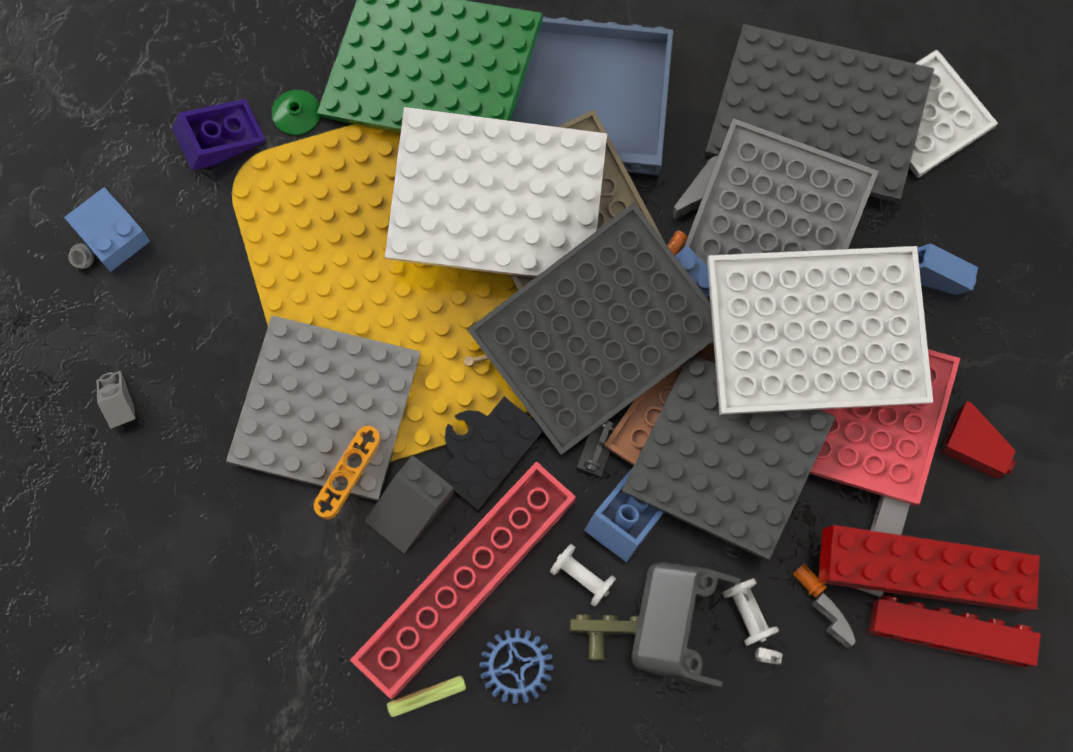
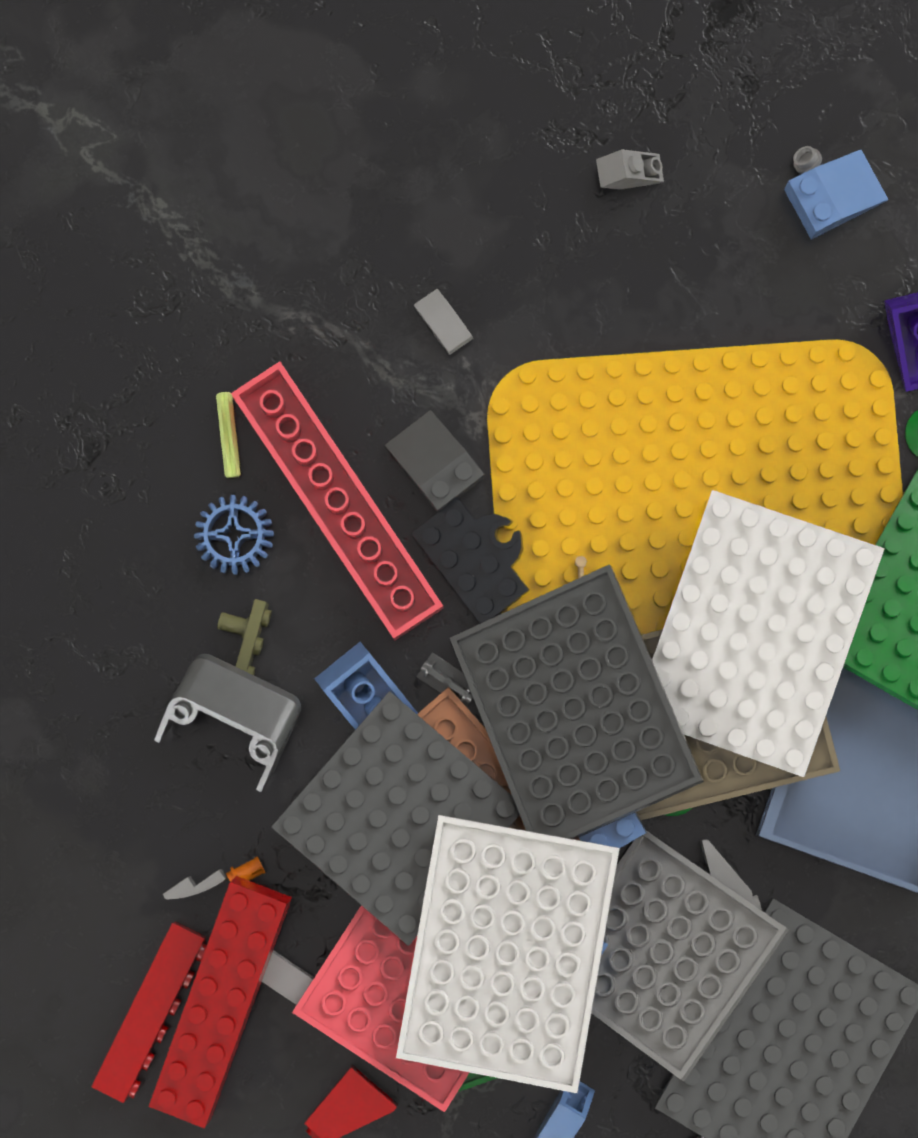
camera: 105 degrees right, 10 degrees up
(282, 528) = (443, 321): none -> light grey slope
(312, 399) = (565, 392): light grey plate -> none
(347, 472) = (484, 397): light orange beam -> none
(582, 575) = (311, 628): white hose -> none
(677, 242) = (663, 830): orange pin -> none
(750, 612) = (226, 797): white hose -> none
(768, 656) = (177, 803): white tile -> none

